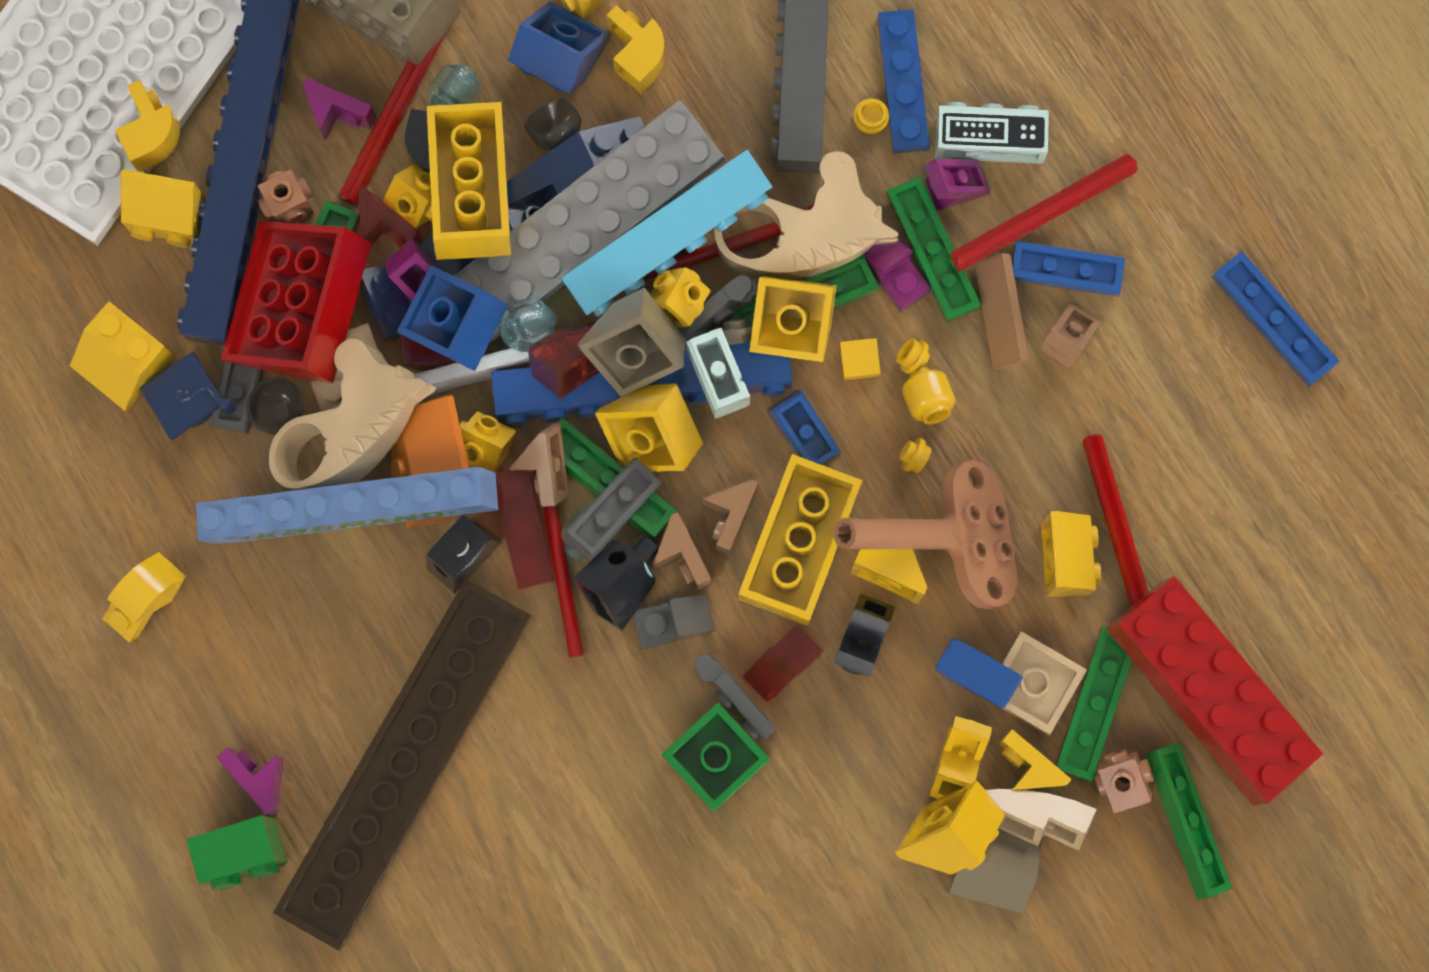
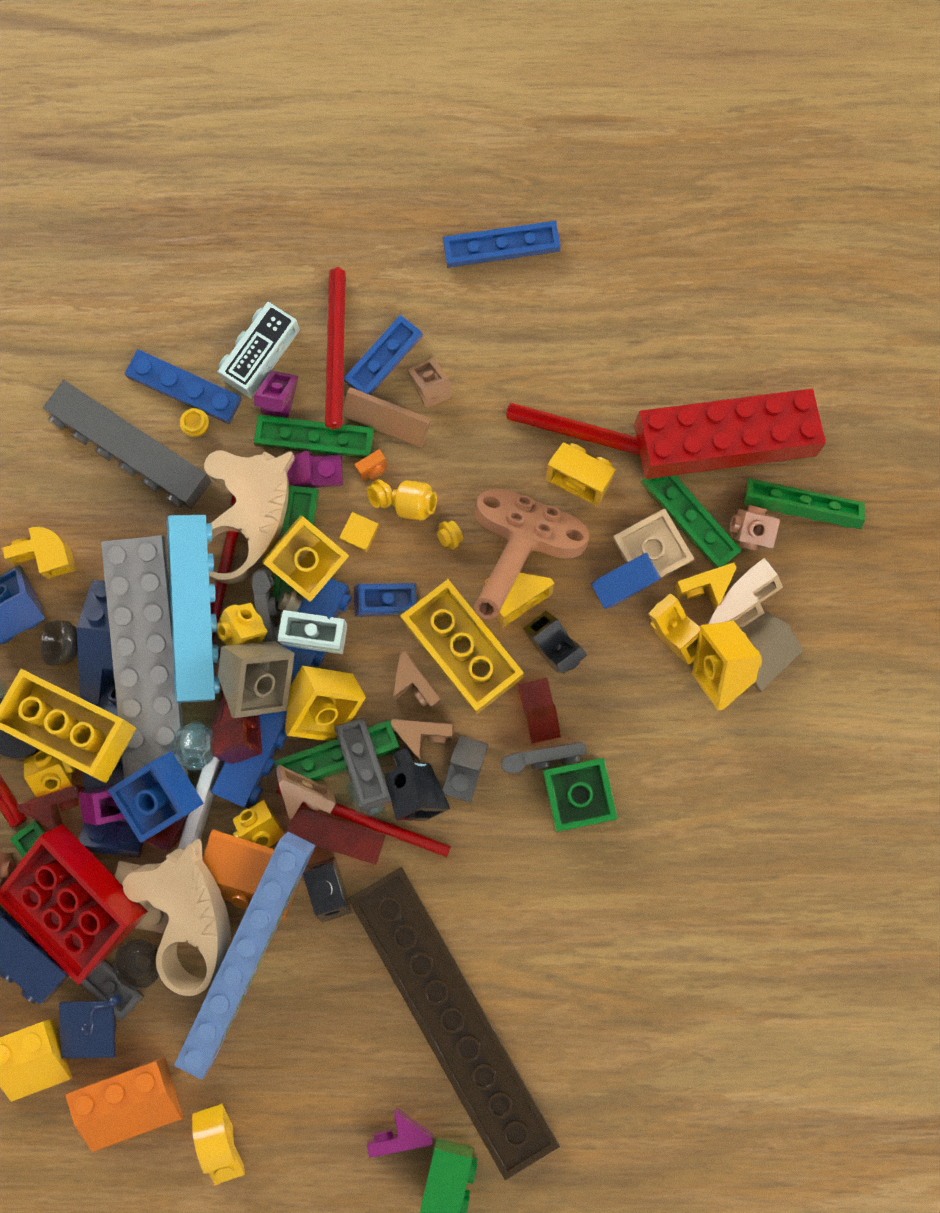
camera: 55 degrees left, 0 degrees up
(129, 480) = (124, 1105): none -> orange slope
(938, 328) = (371, 466): none -> orange plate

